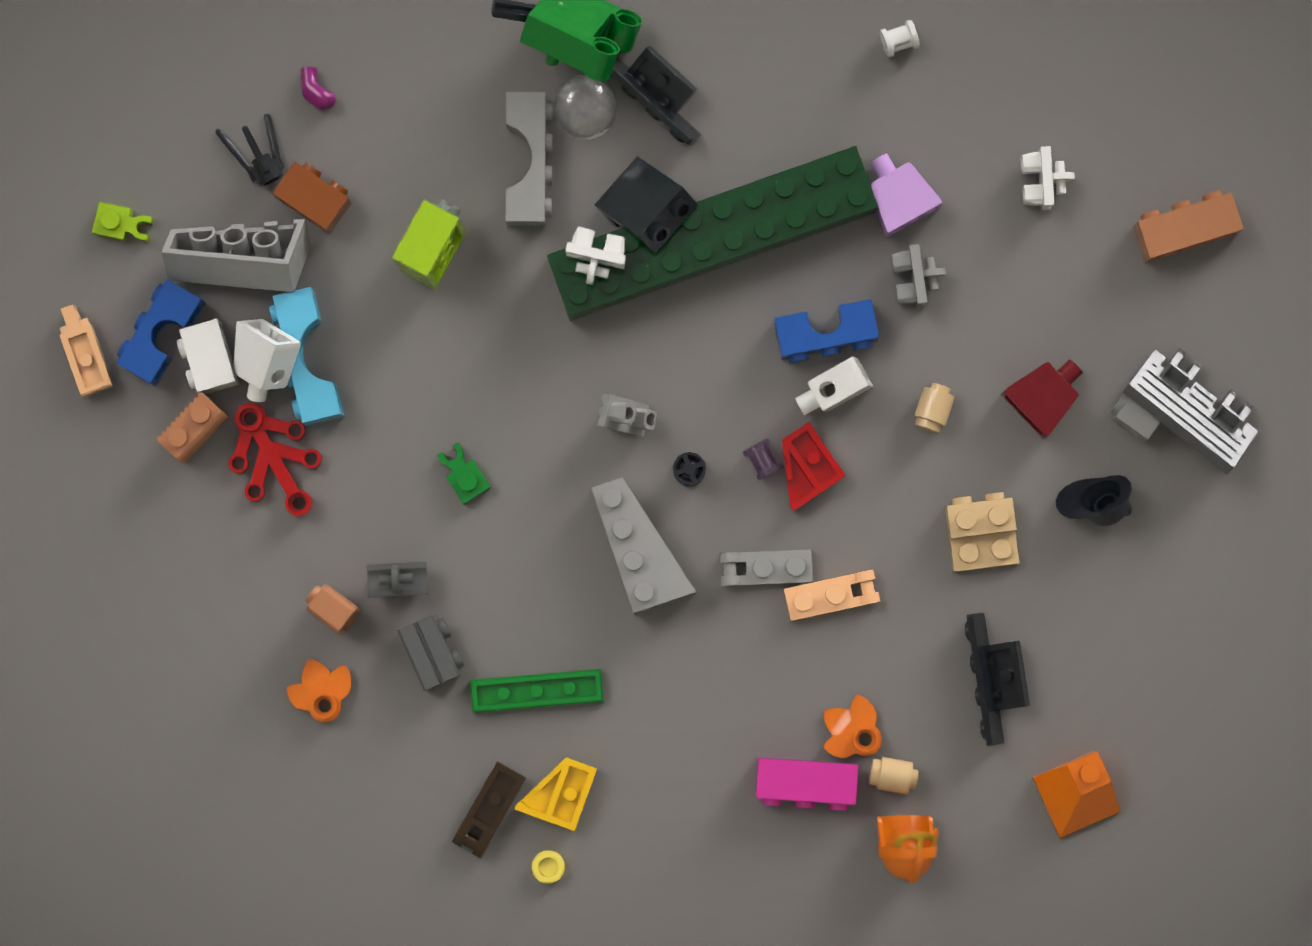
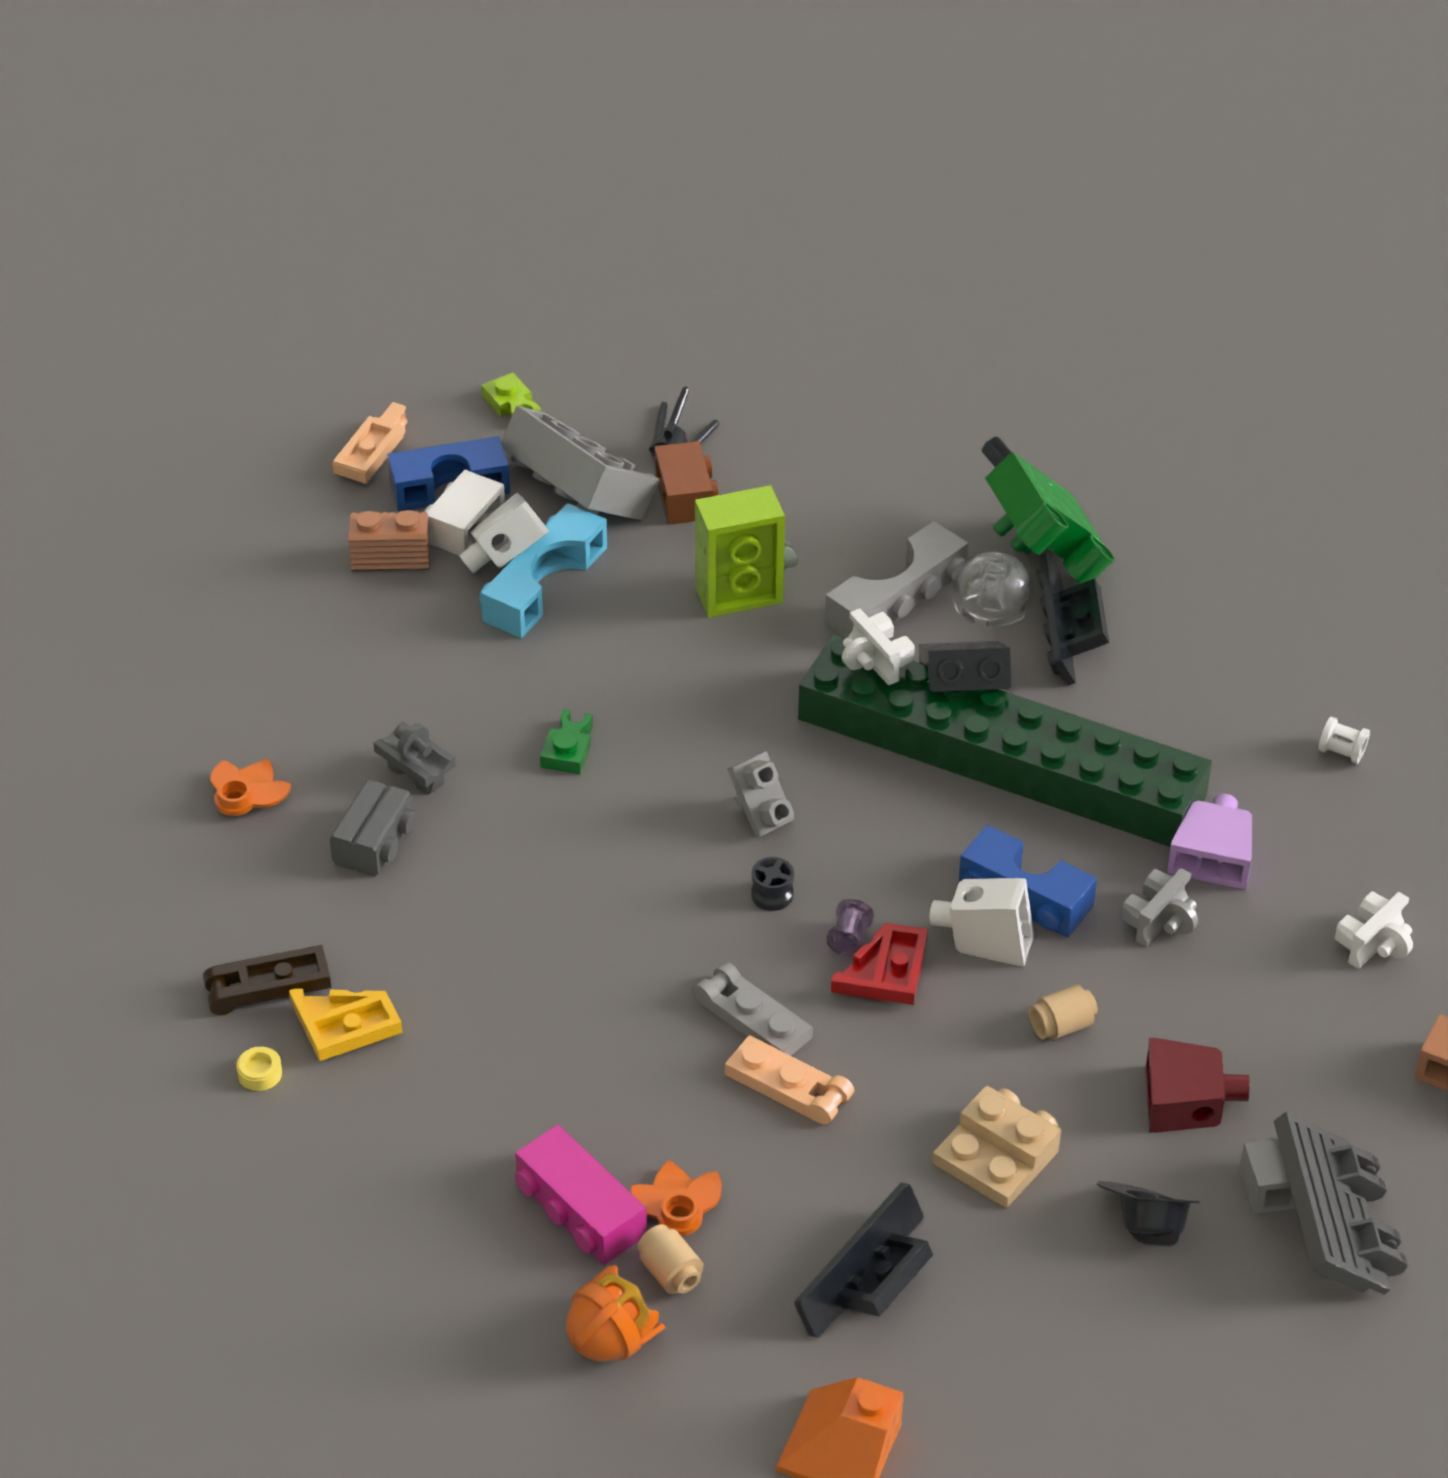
camera: 40 degrees right, 40 degrees down
(271, 454) = (440, 578): red plant -> none
(313, 92) = (772, 429): magenta arm -> none
(332, 609) = (333, 725): nougat brick -> none
(536, 690) = (427, 935): green tile -> none
(641, 555) = (648, 900): light grey wedge -> none

